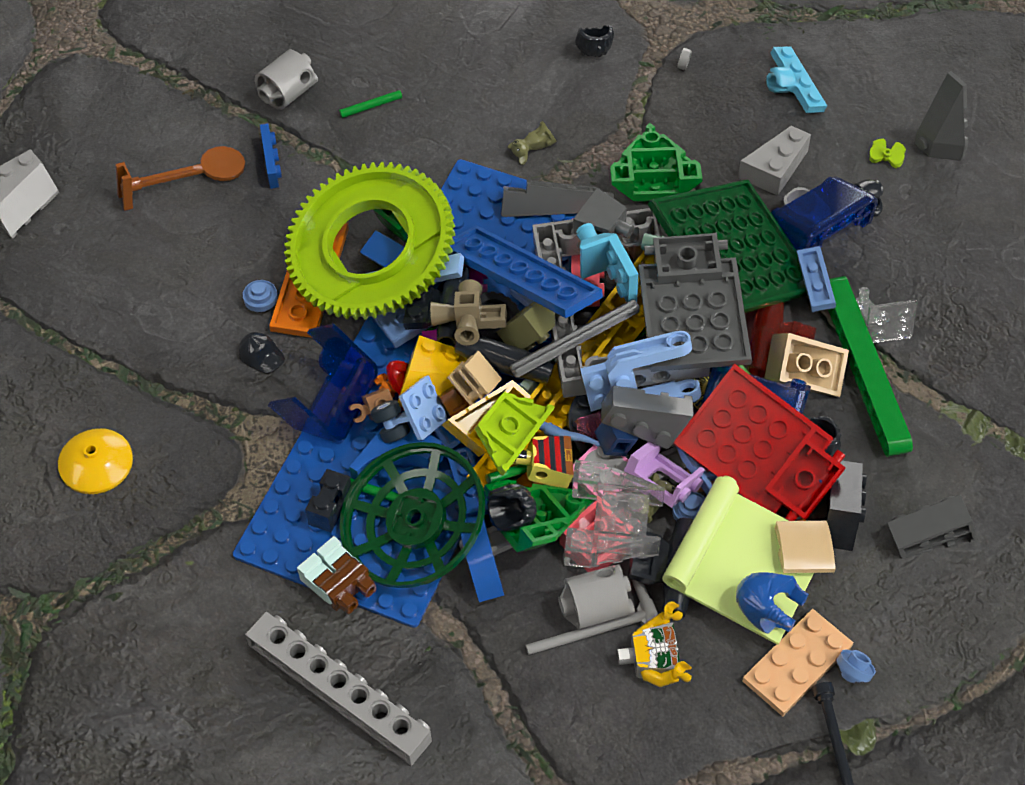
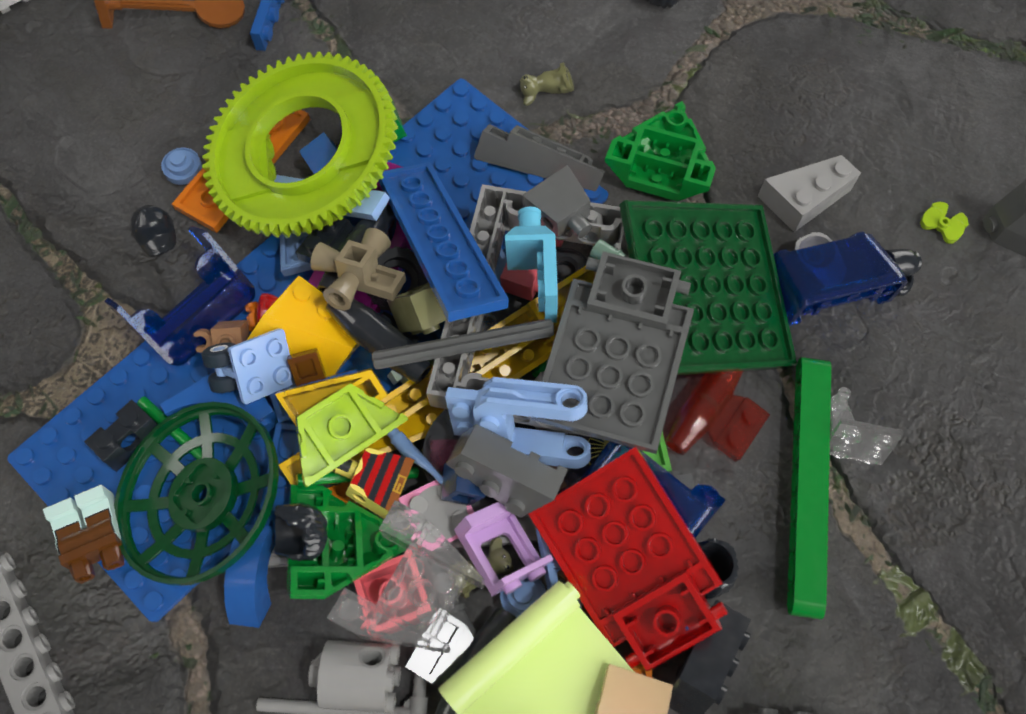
camera: 20 degrees right, 10 degrees up
(479, 376) = (332, 351): tan piece -> none
(684, 59) = (754, 38): light grey tile -> none
(793, 77) = (871, 99): medium azure plate -> none
(807, 360) = (735, 462): tan slope -> none
(816, 279) = (793, 356): medium blue plate -> none

